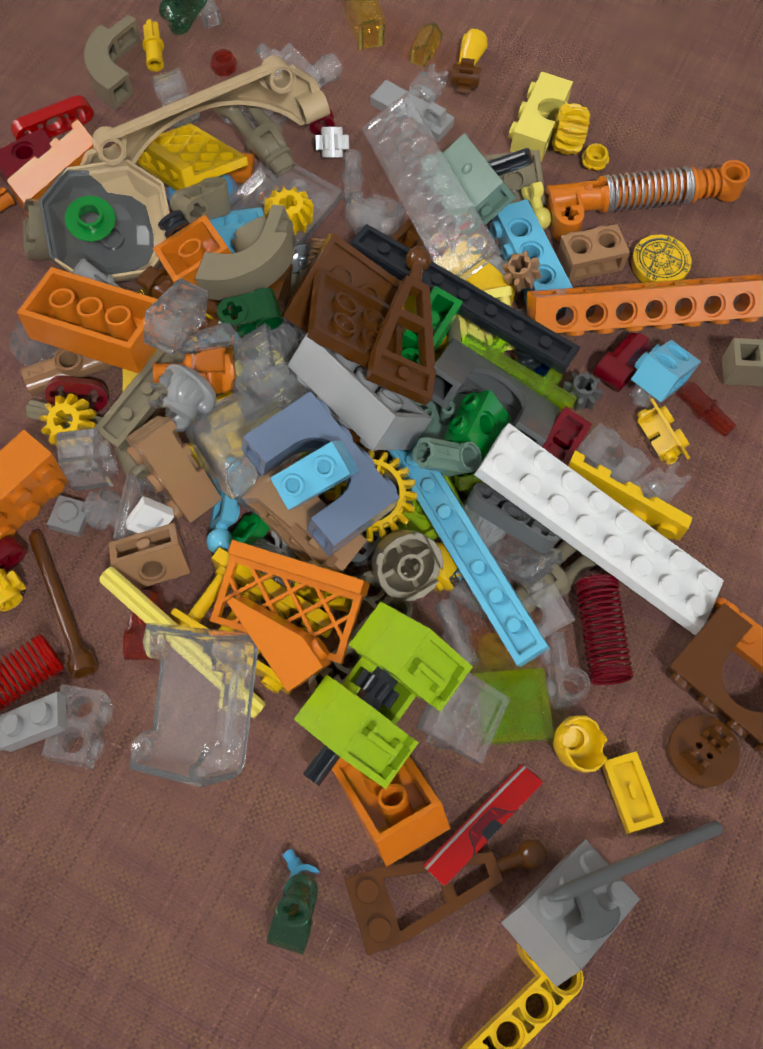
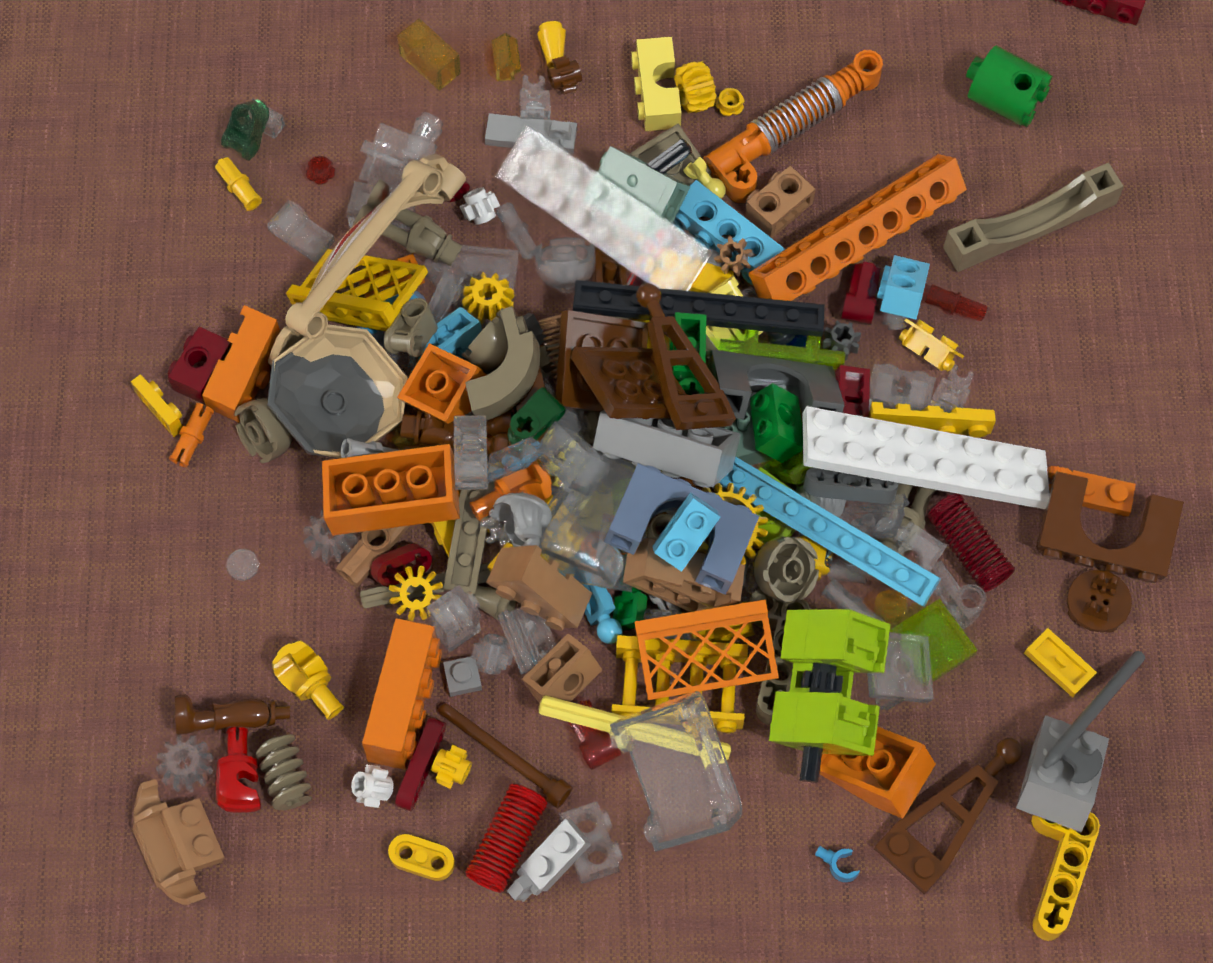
camera: 25 degrees left, 0 degrees up
(40, 117) = (194, 311): red beam -> none
(90, 231) = (323, 412): green piece -> none
(101, 55) = (214, 241): dark tan arch -> none
(149, 515) = (544, 638): white plate -> none
(172, 223) = (405, 366): black bush -> none
(286, 647) = (729, 685): orange slope -> none
(294, 914) = (854, 893): clear green piece -> none
(447, 456) = (772, 460): sand green piece -> none
(482, 825) = (959, 747): red sticker -> none
(580, 744) = (1001, 645): yellow hair -> none
(660, 259) = (843, 179): yellow tile -> none

